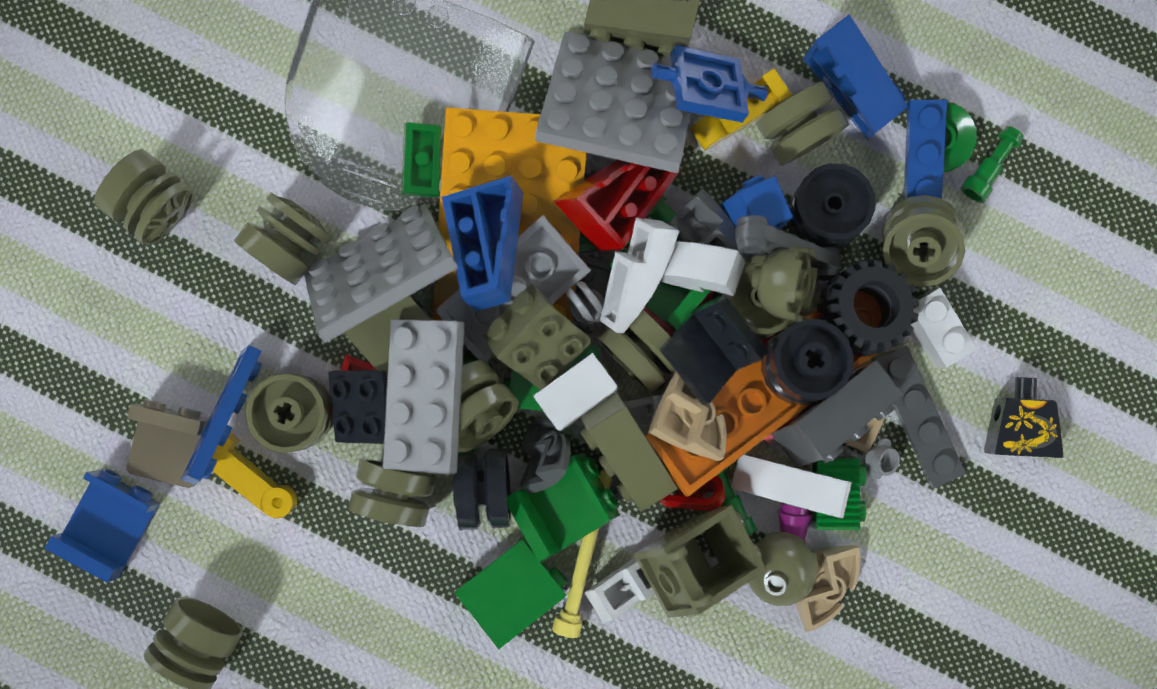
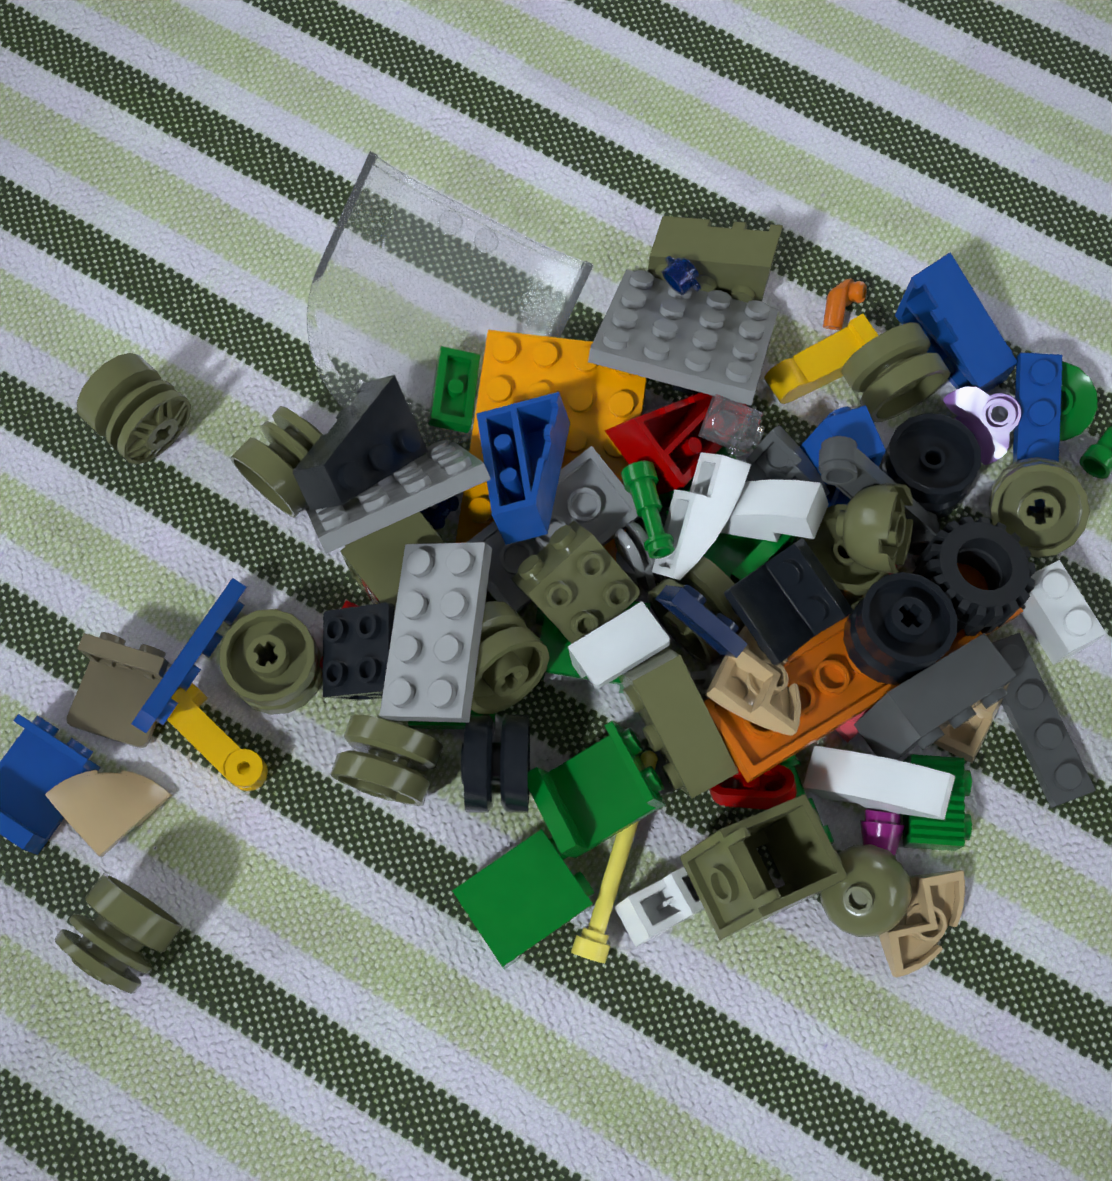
camera: 10 degrees right, 15 degrees down
(169, 537) = (106, 805): none -> tan brick
(347, 229) = (362, 447): none -> black wedge
(548, 456) = (579, 726): dark grey brick -> none
(587, 247) = (641, 481): none -> green piece
(612, 44) = (681, 275): none -> clear blue plate
(632, 365) = (714, 629): none -> dark blue plate
(662, 190) = (732, 425): none -> clear bracket
(709, 83) = (789, 321): blue plate -> none
(754, 48) = (839, 299): none -> orange arm
(874, 163) = (975, 411): none -> plate
(882, 459) = (990, 765): light grey plate -> none

